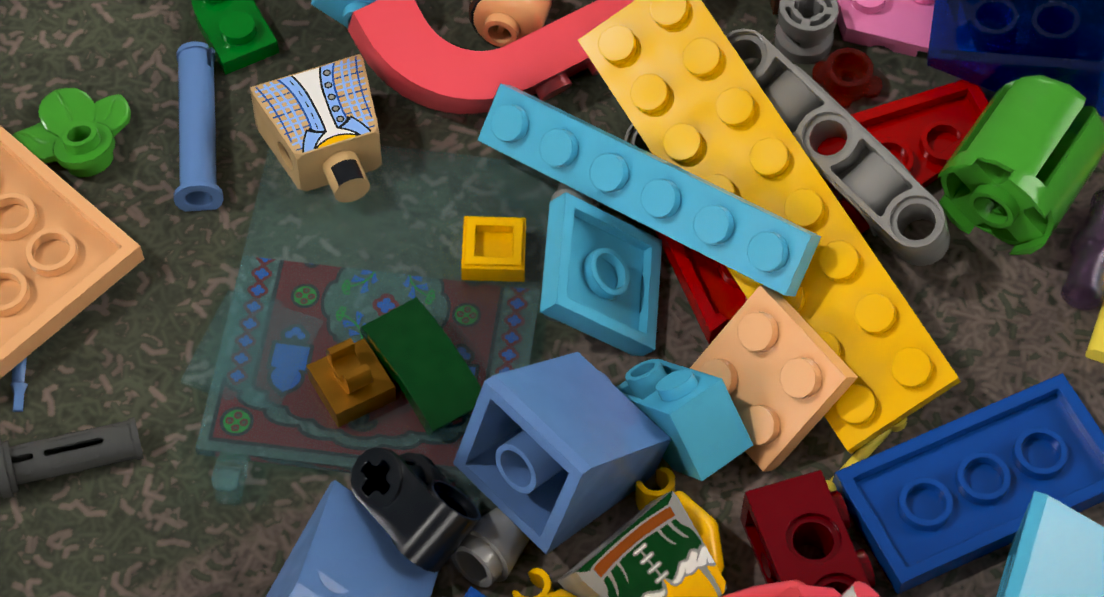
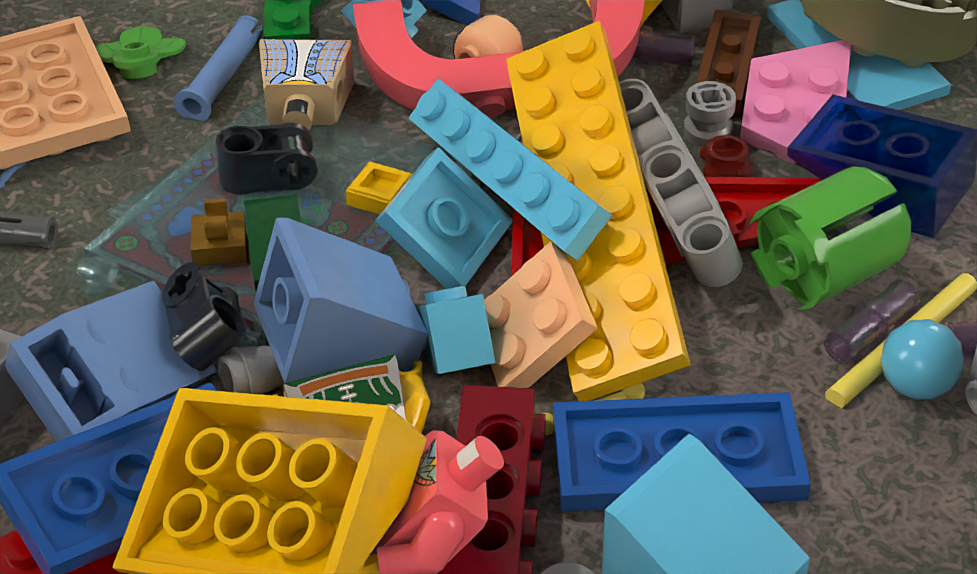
camera: 25 degrees right, 15 degrees down
(352, 253) = (261, 158): none -> black piece

